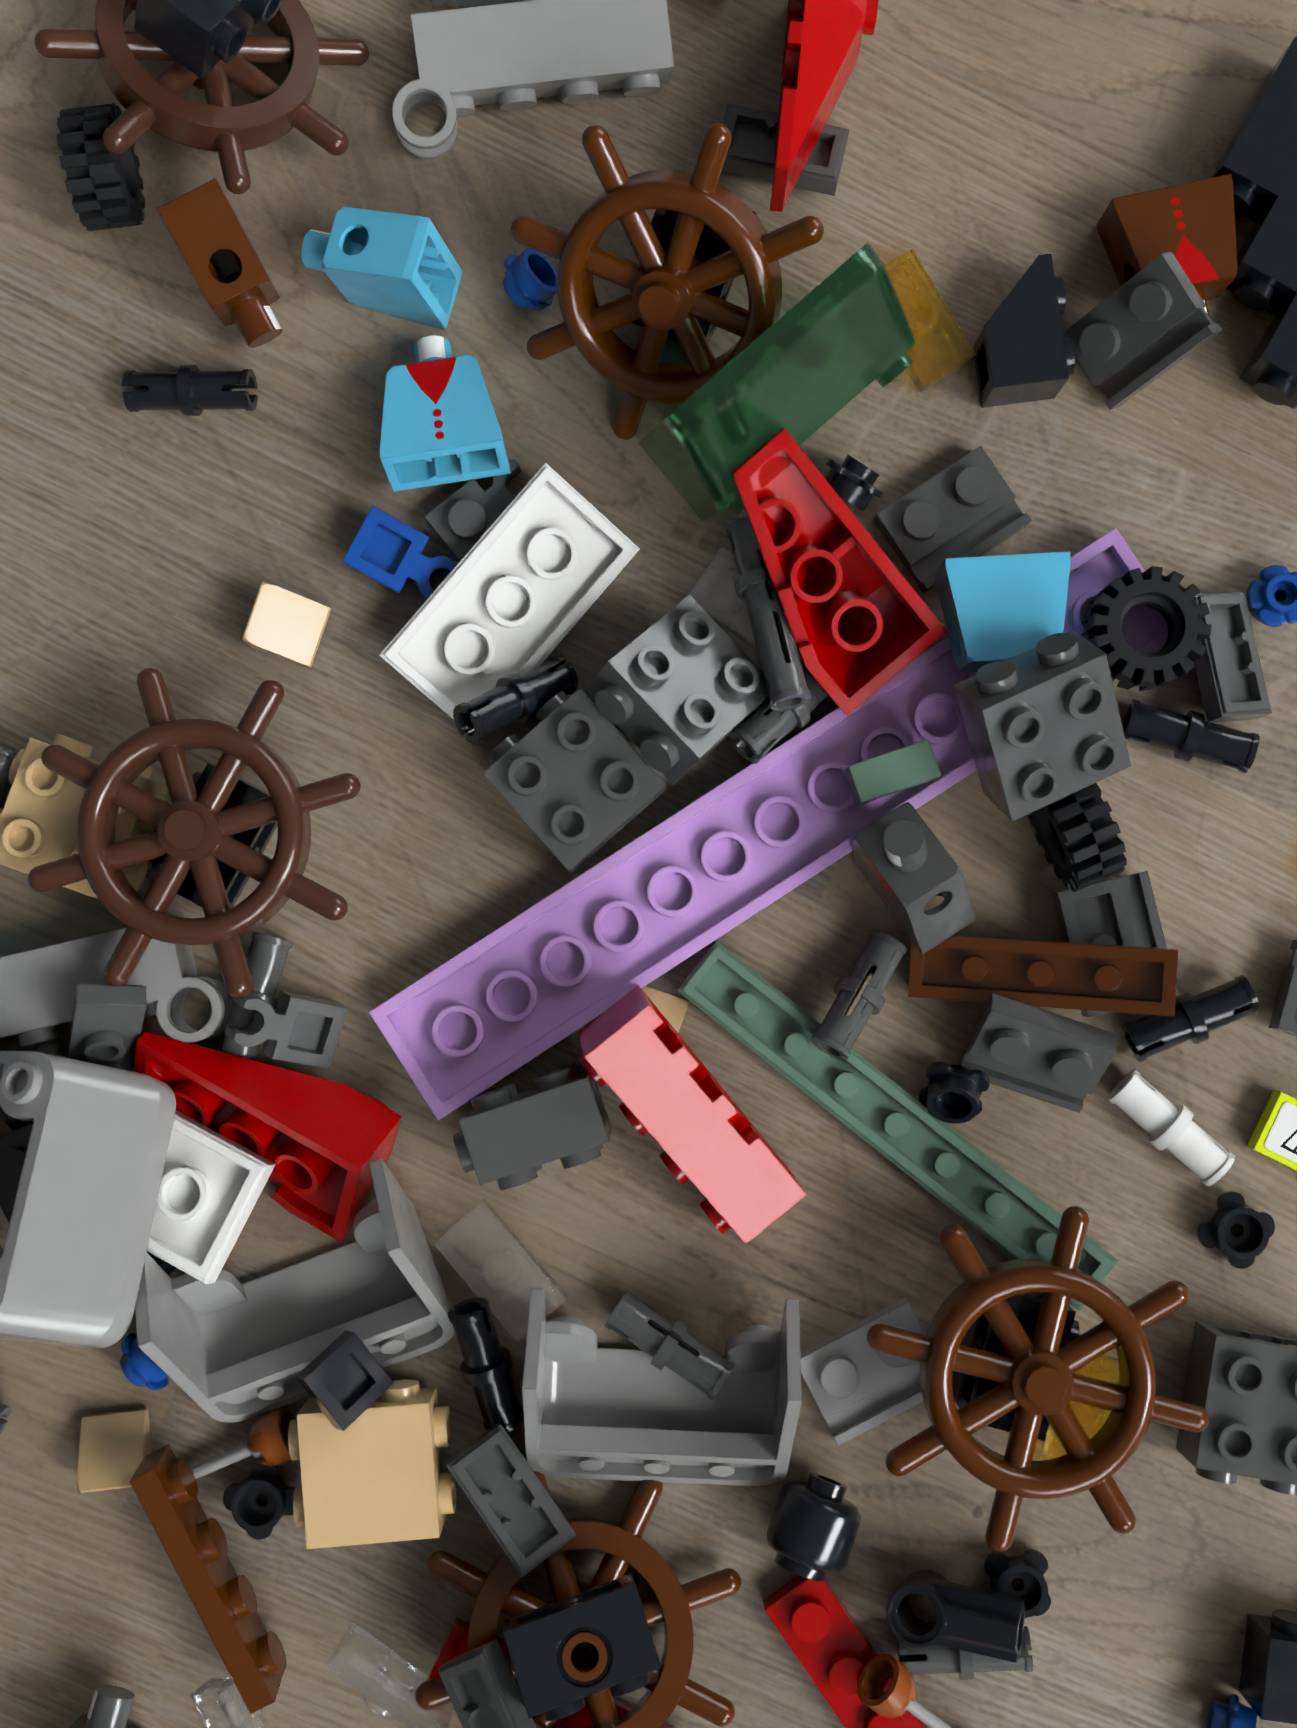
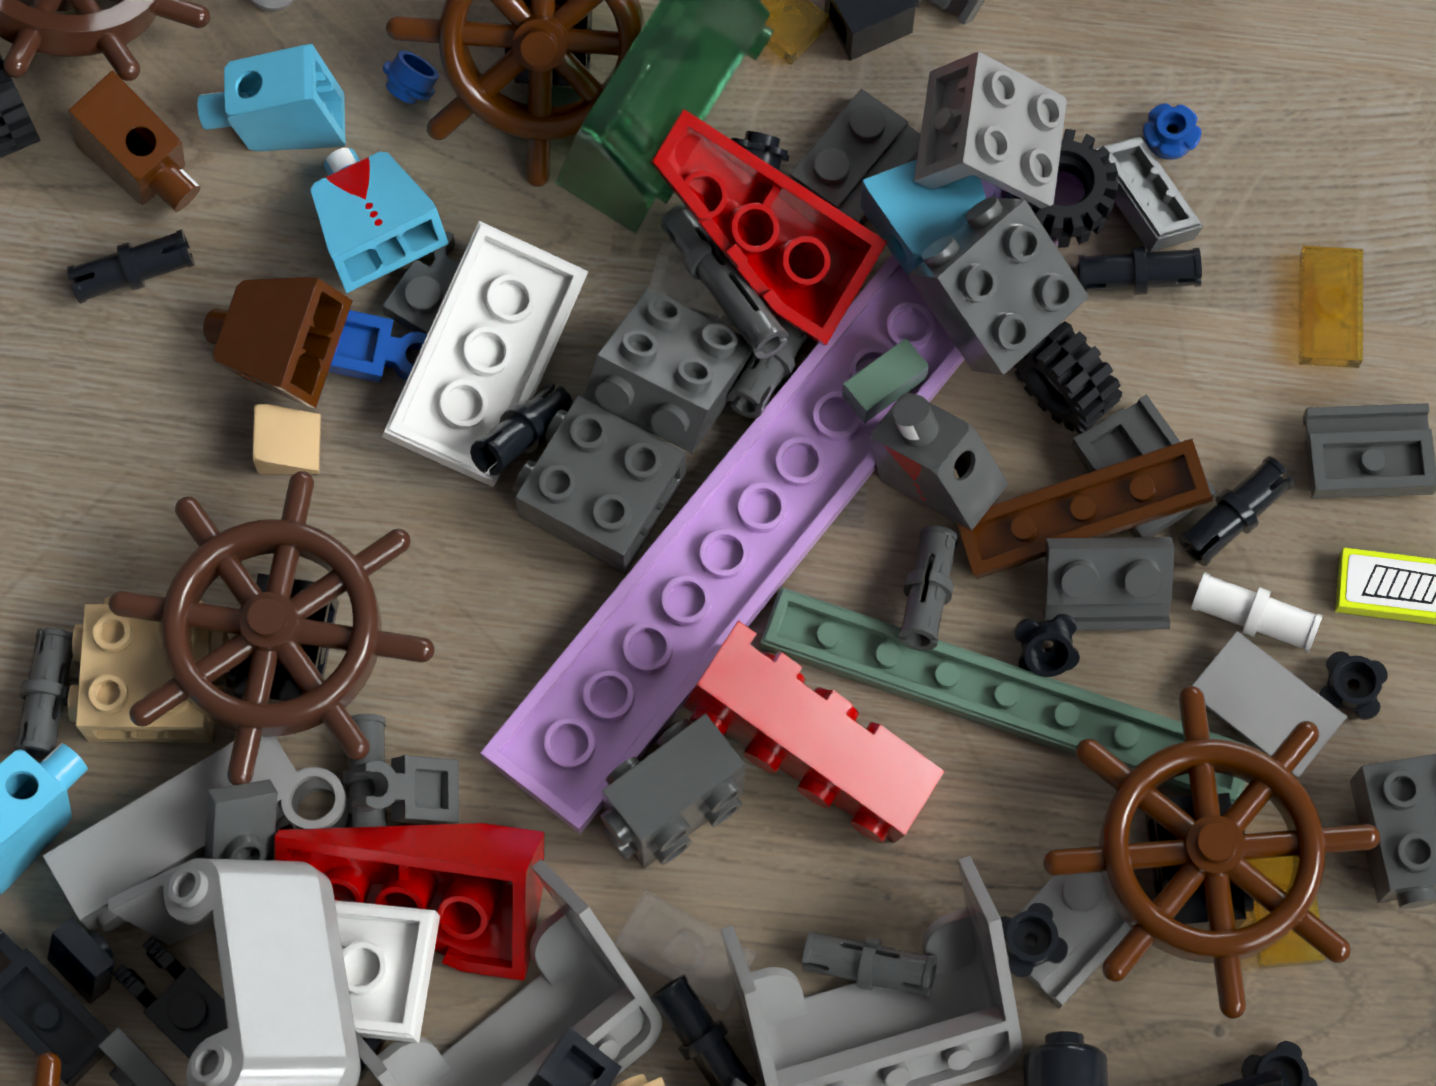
camera: 20 degrees left, 15 degrees down
(306, 521) = (280, 334): none -> reddish brown torso
(843, 1398) = (1048, 945): none -> black plate
(1096, 551) = (991, 126): none -> light grey bracket
(1145, 1221) = (1264, 699): none -> light grey piece

